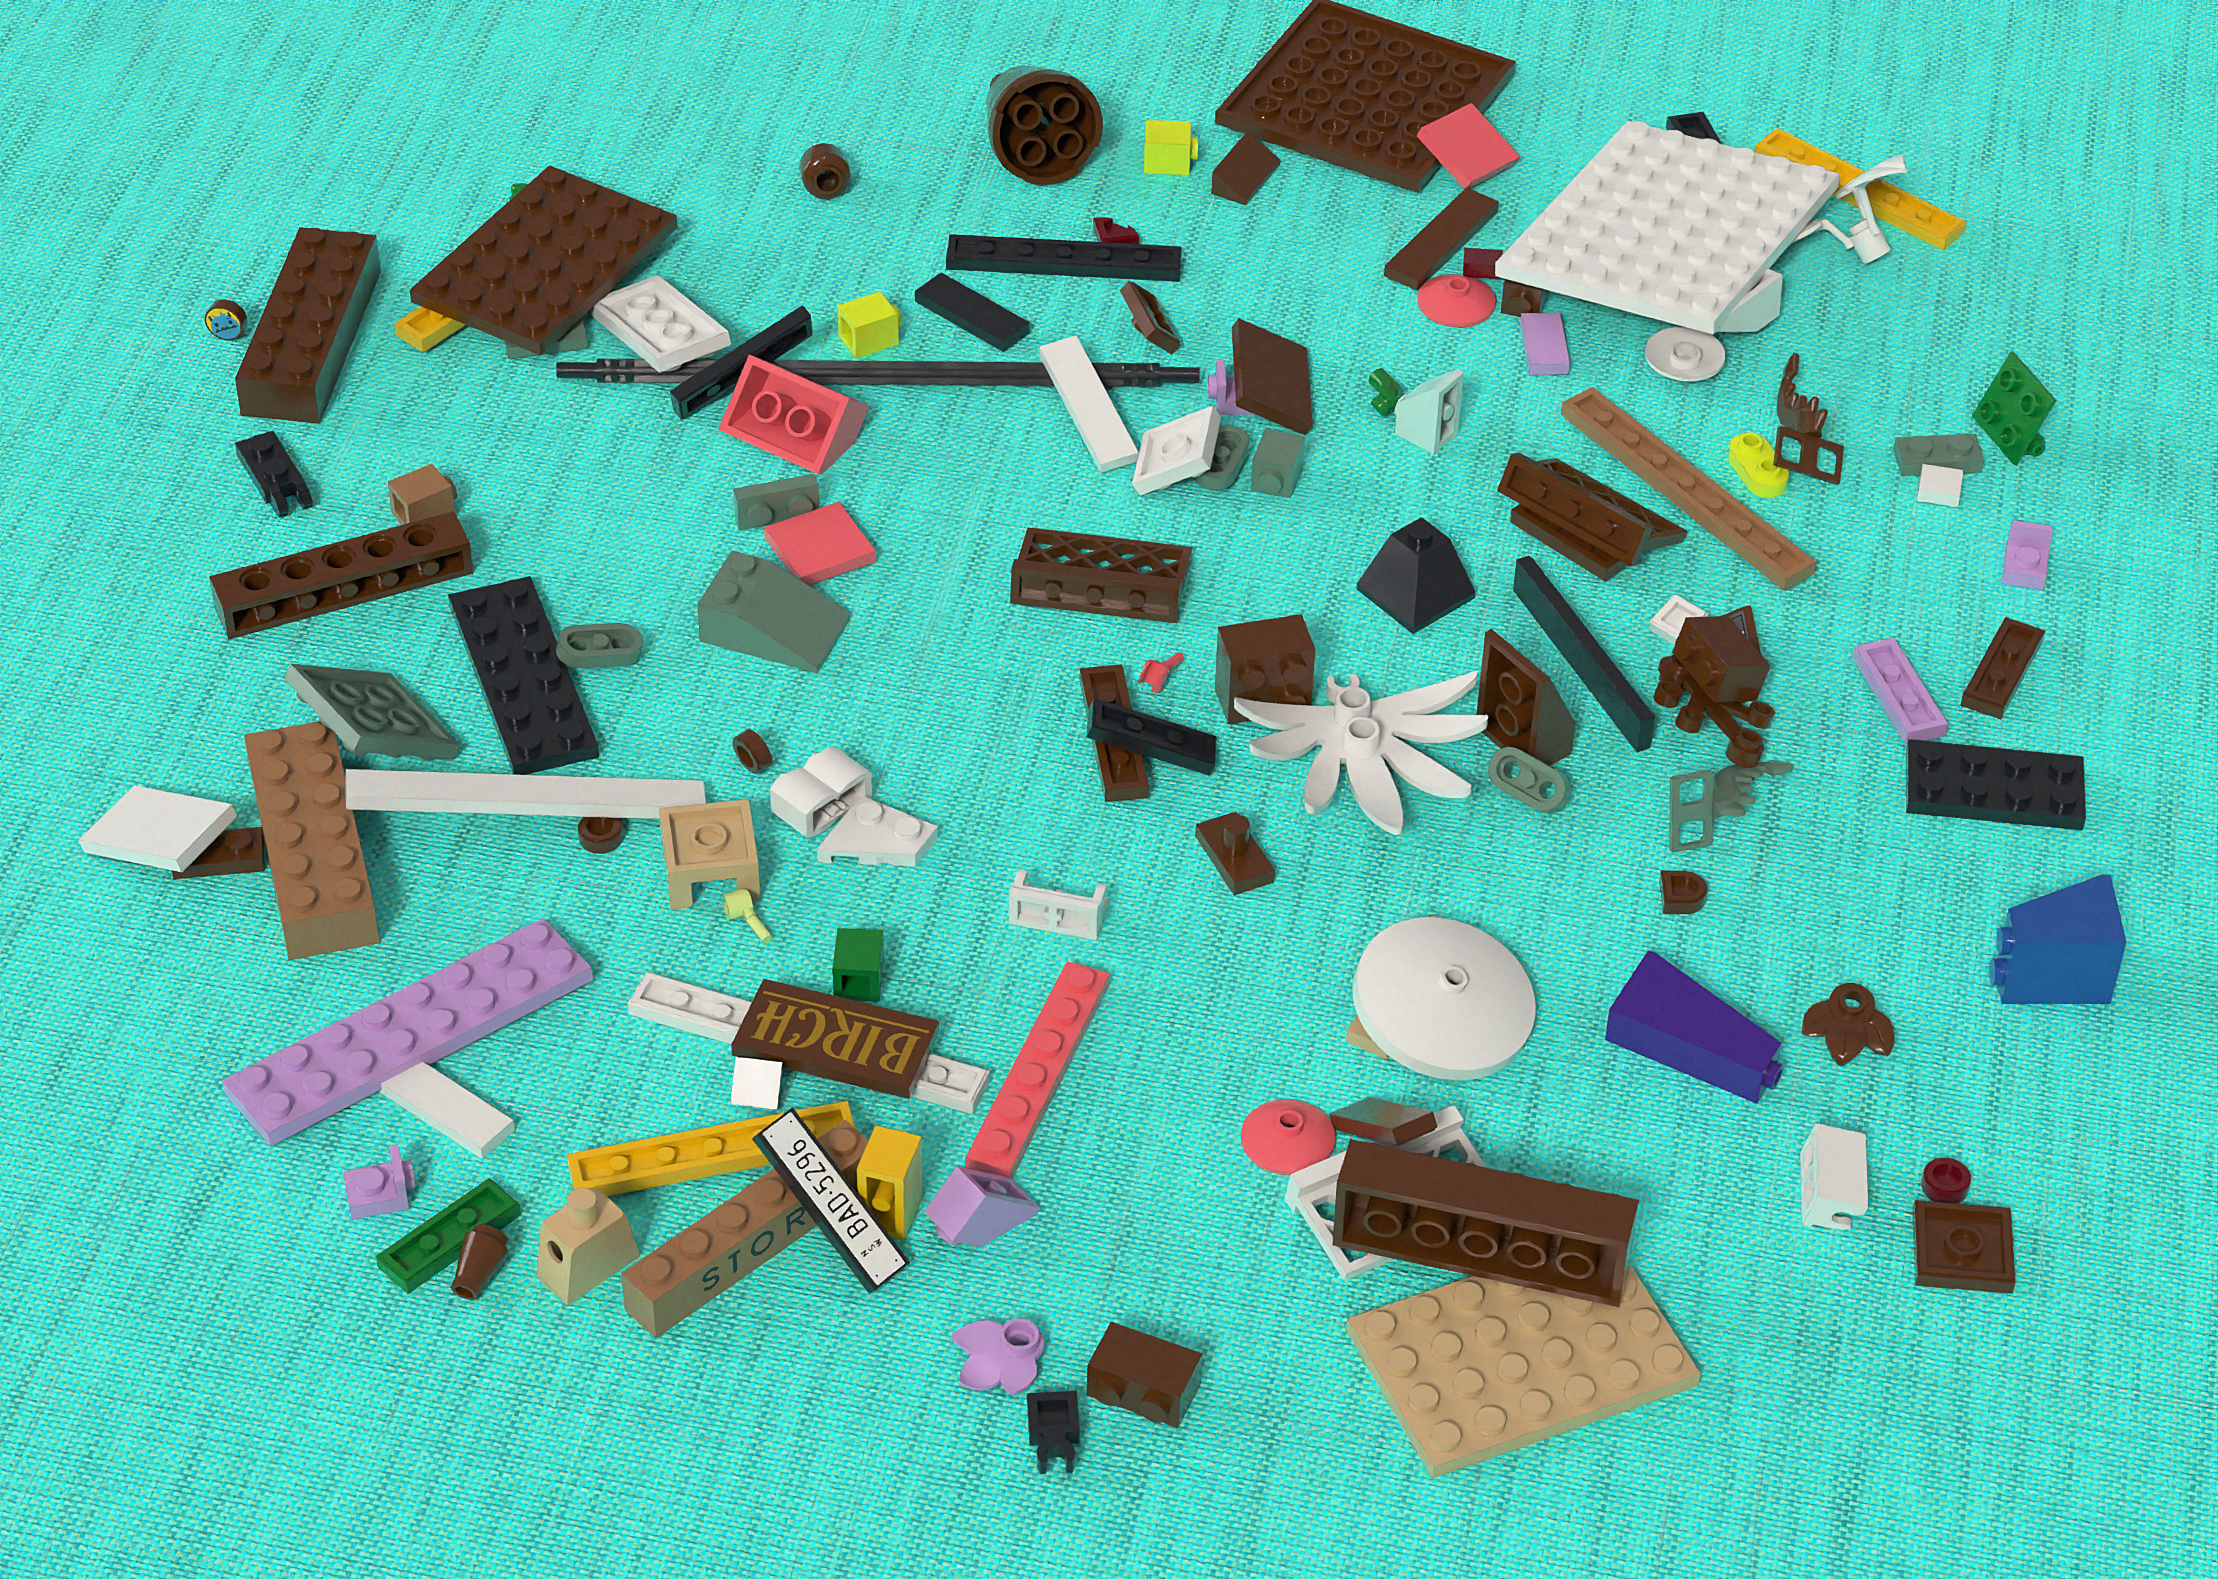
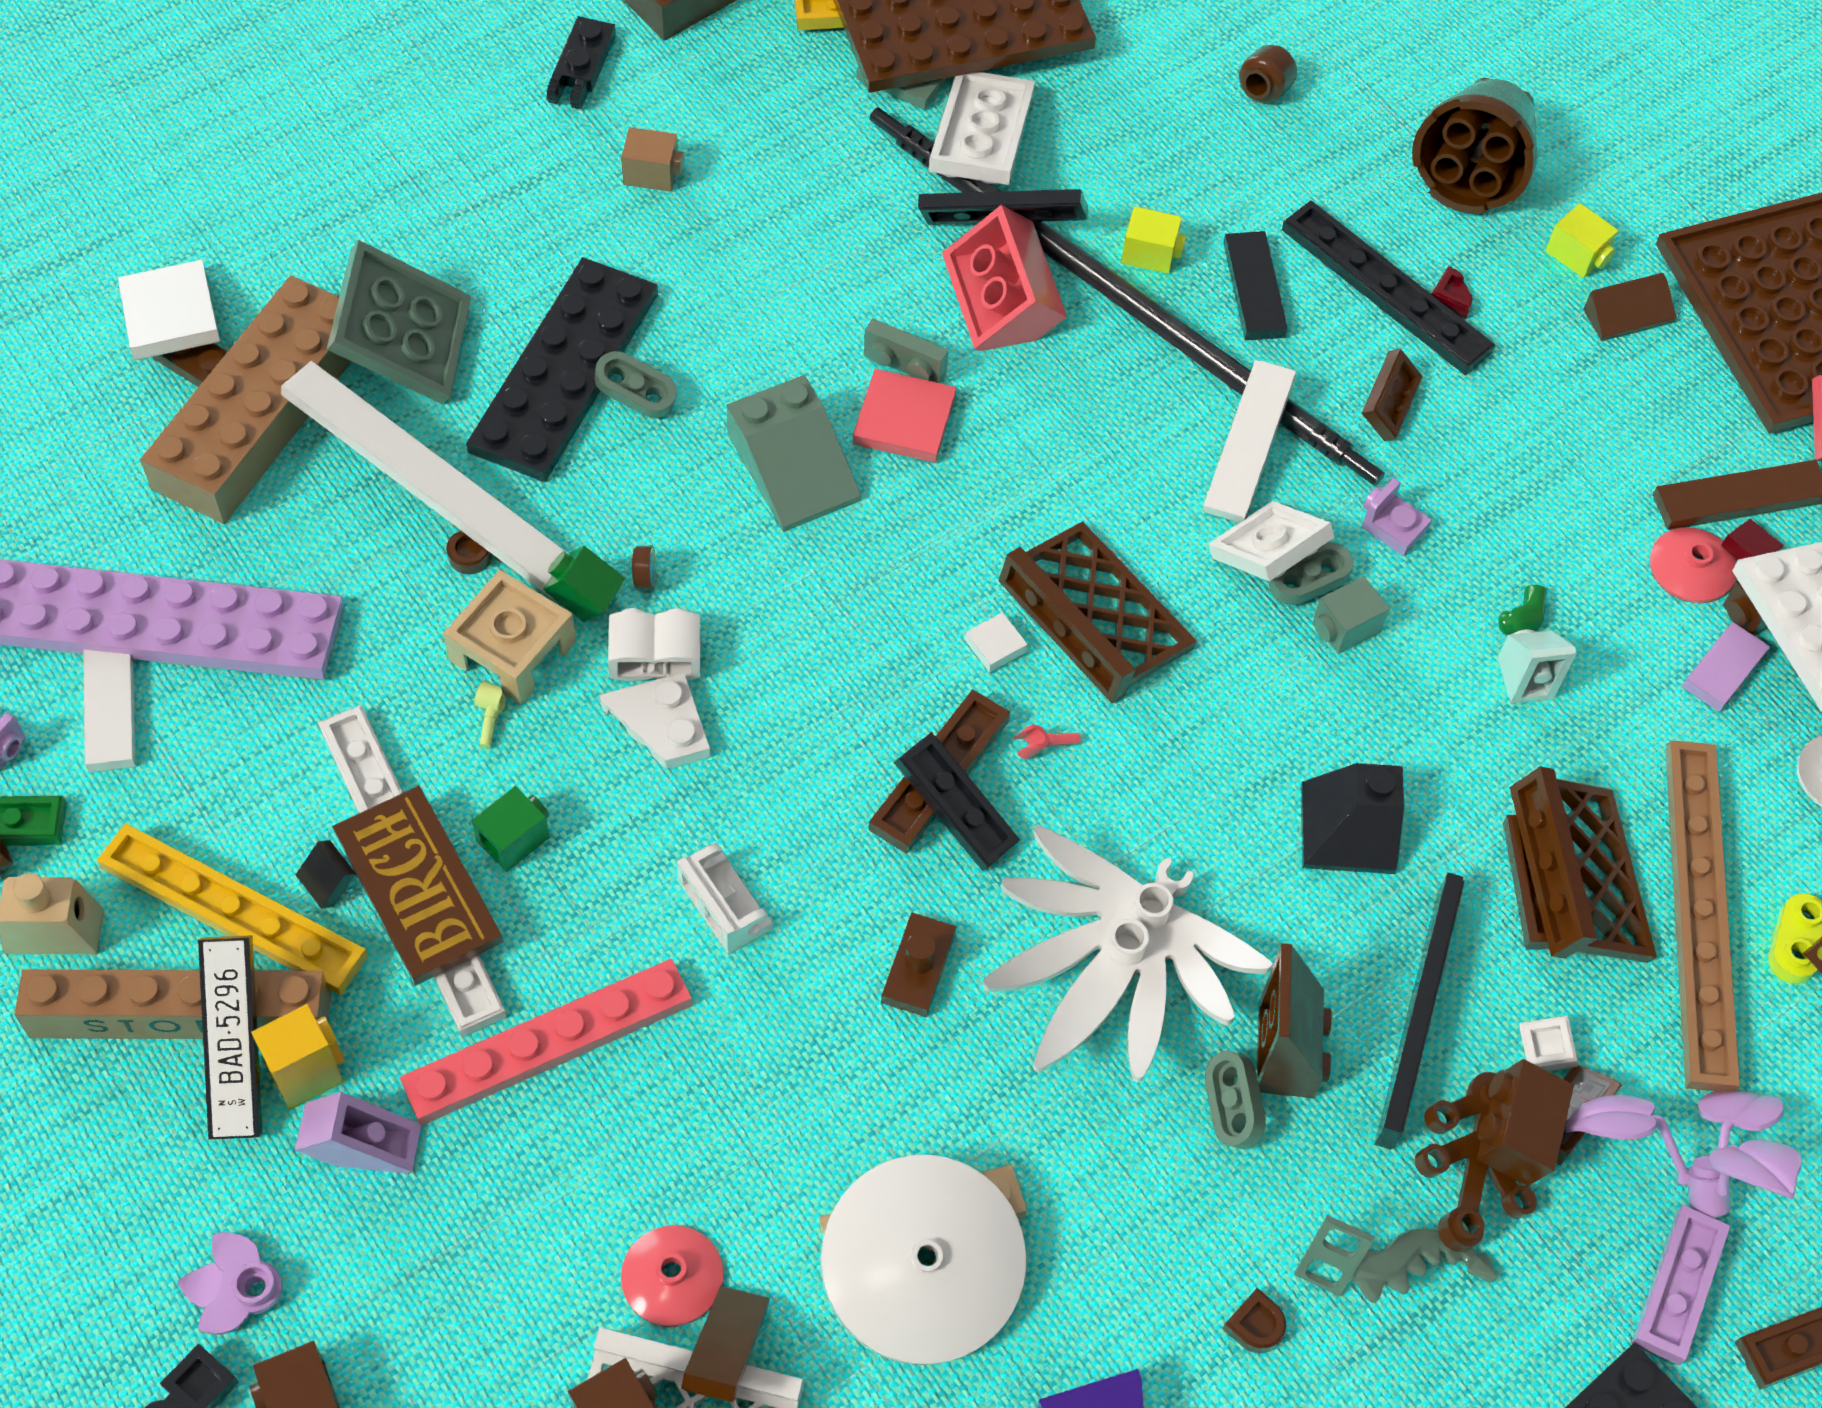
camera: 40 degrees right, 15 degrees up
(341, 575) = (525, 184): reddish brown brick -> none
(724, 778) = (583, 583): none -> green brick
(1056, 637) = (996, 642): none -> white tile
(1264, 664) = (1111, 810): reddish brown piece -> none
(1271, 377) = (1432, 527): reddish brown tile -> none
(1855, 620) = (1708, 1180): none -> lavender plant

